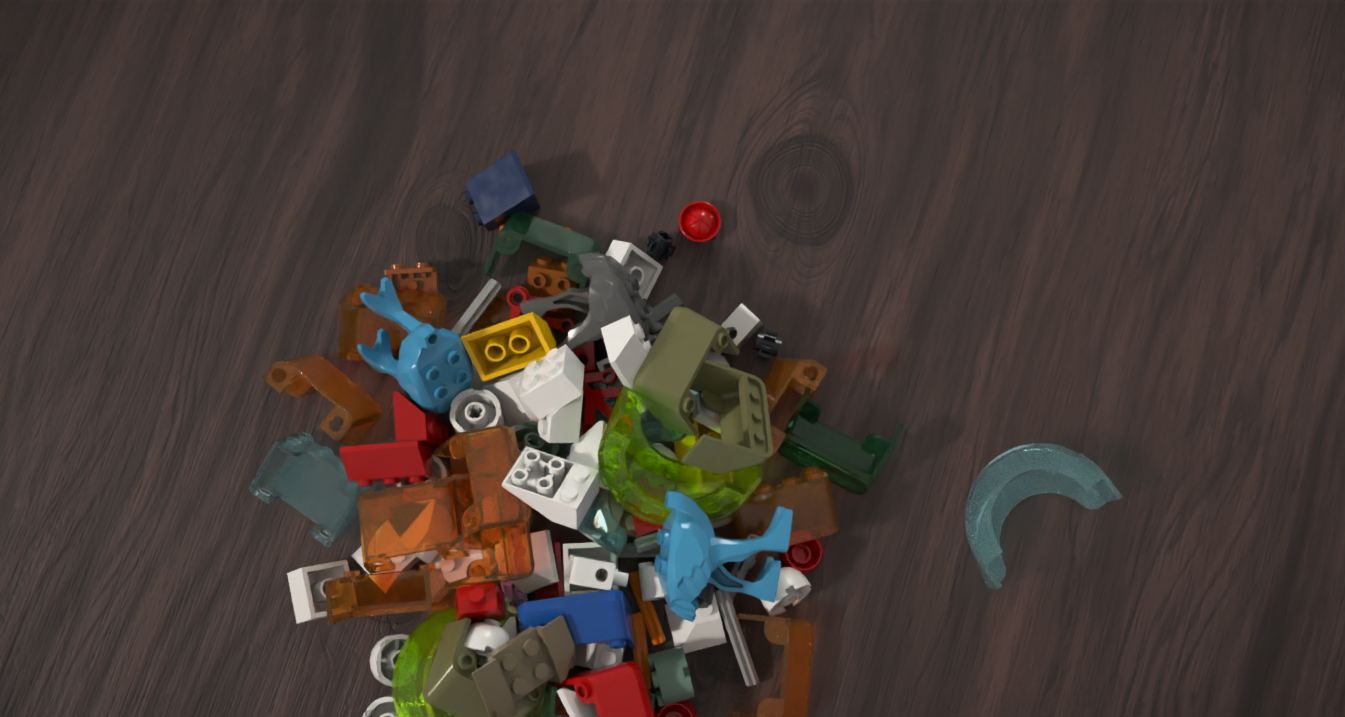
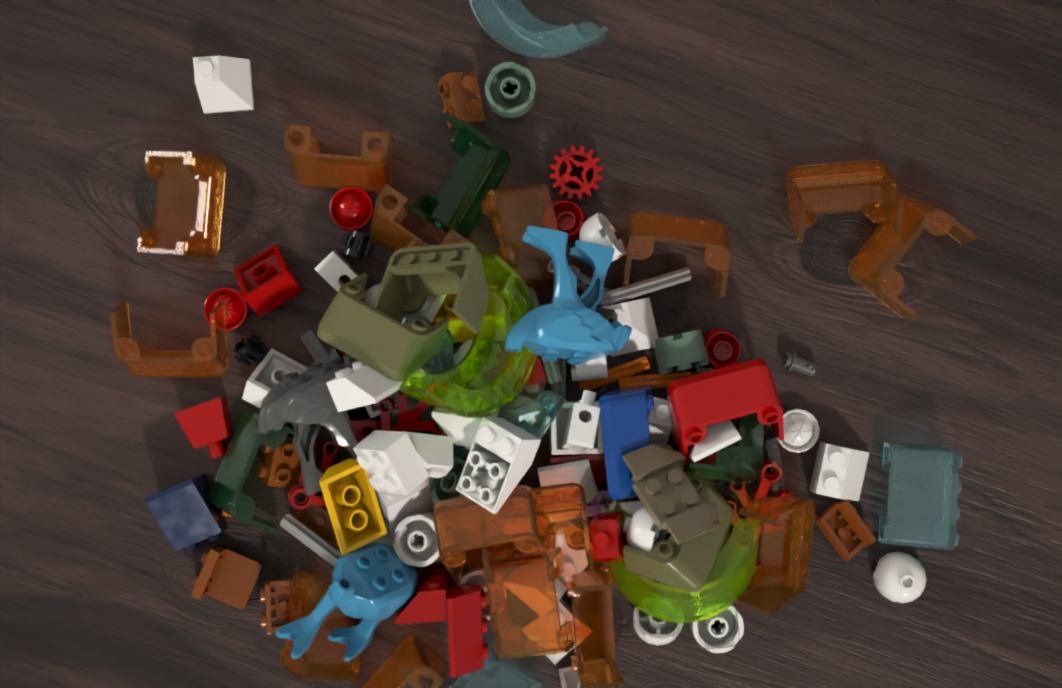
camera: 95 degrees left, 10 degrees up
(440, 231) = (226, 576): none -> dark orange bracket
(587, 208) = (207, 425): none -> red torso
(650, 203) = (205, 360): none -> clear orange windscreen
(728, 260) = (267, 281): none -> red slope
(798, 181) = (186, 204): none -> clear orange windscreen
(803, 338) = (351, 208): none -> red hat
(838, 347) = (366, 172): none -> clear orange windscreen
(843, 552) = (586, 166): none -> red gear
(919, 212) = (223, 83): none -> white slope
(920, 444) = (461, 97): none -> dark orange bracket
(943, 499) = (518, 78): none -> sand green brick

